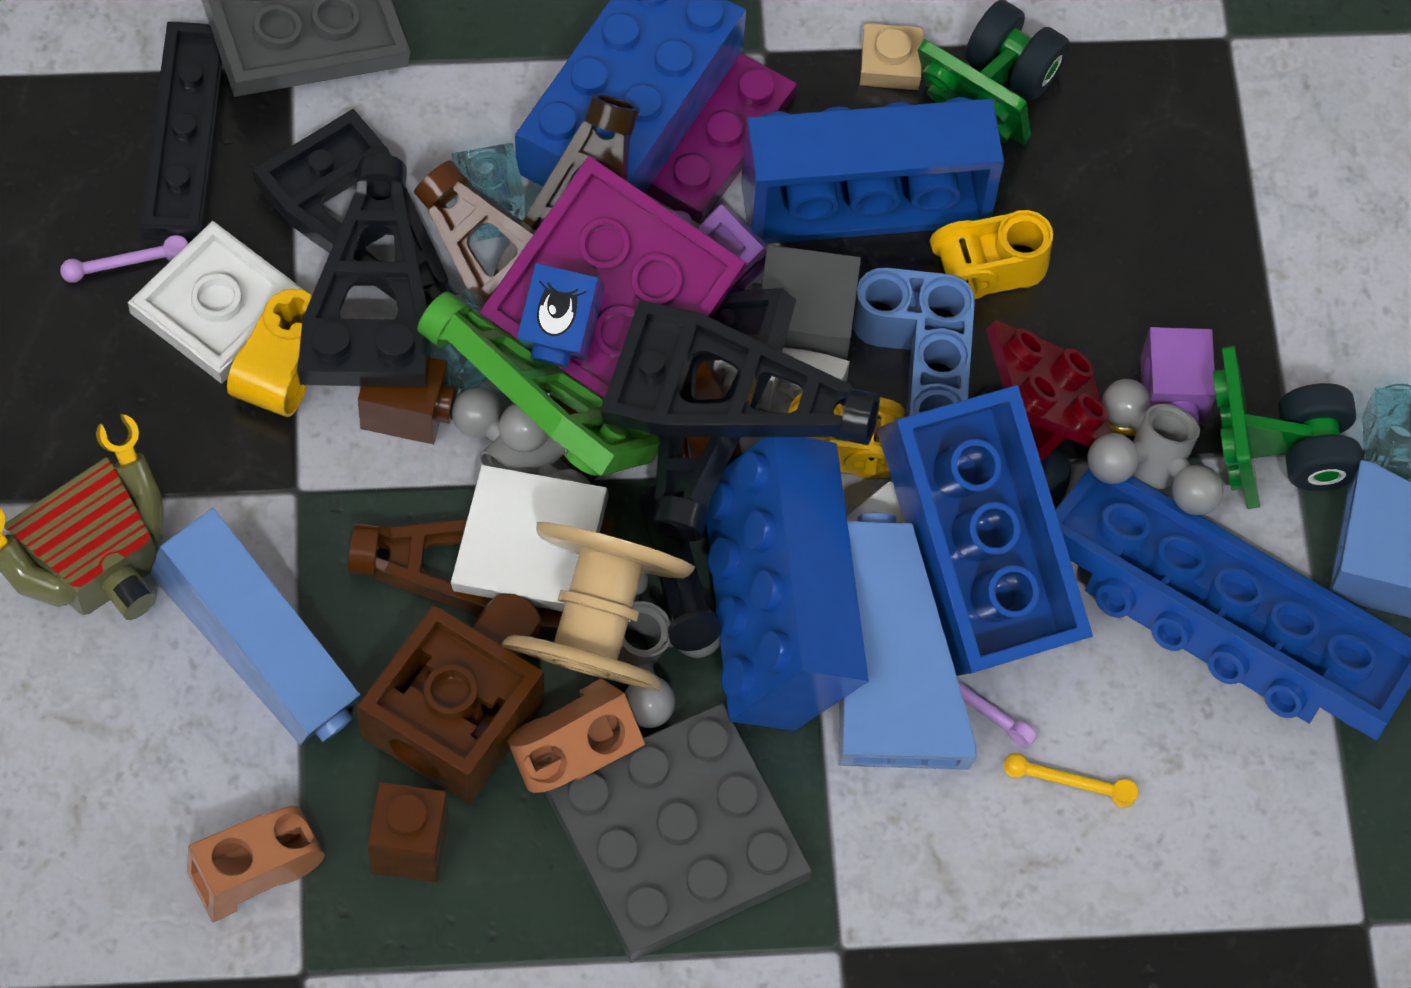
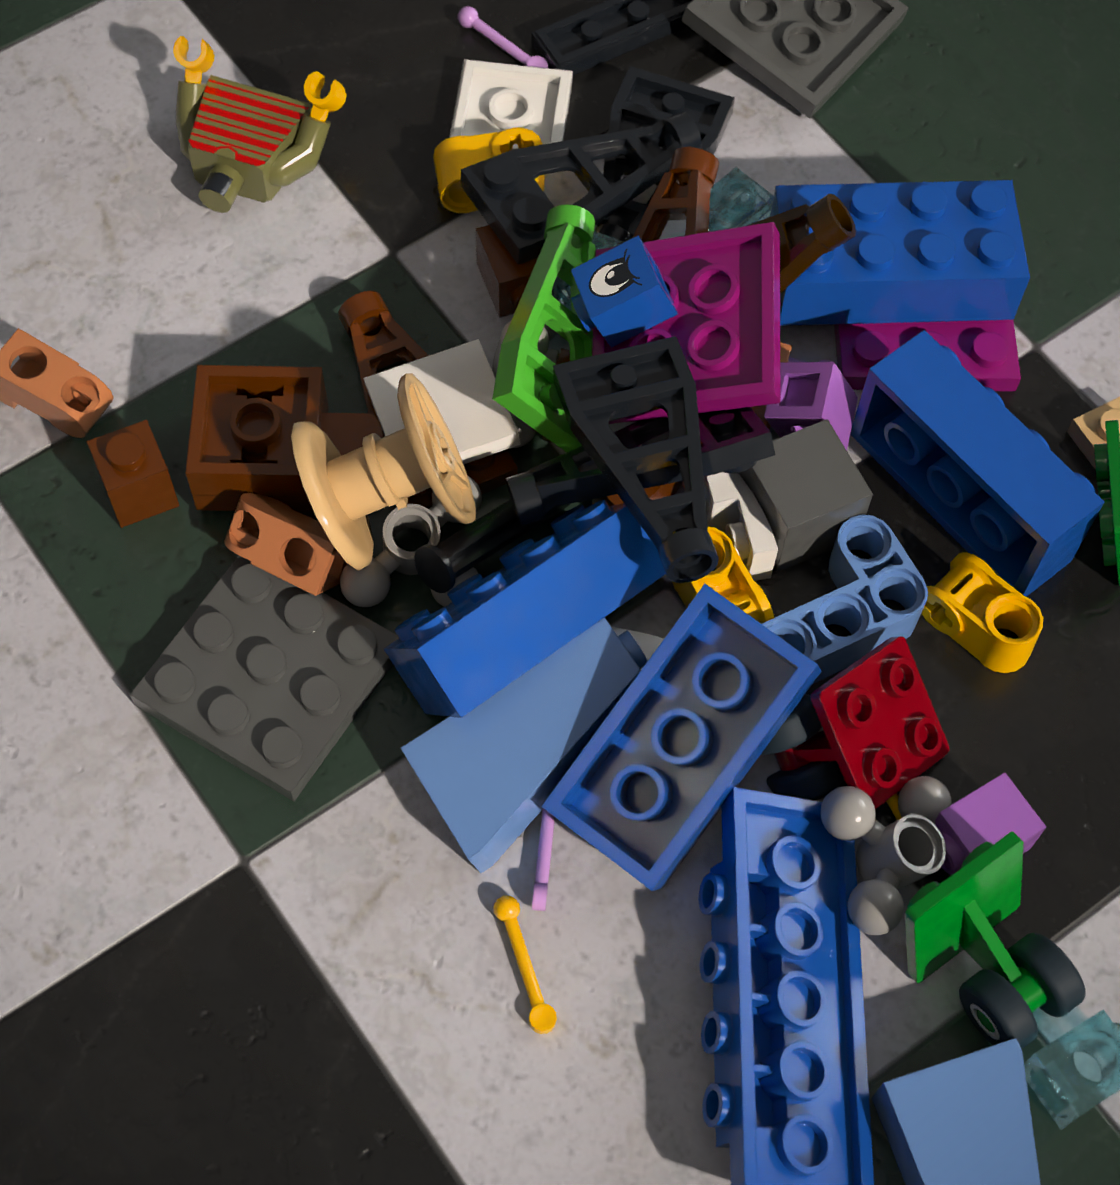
camera: 60 degrees right, 0 degrees up
(254, 628) = (238, 267): medium blue slope -> none

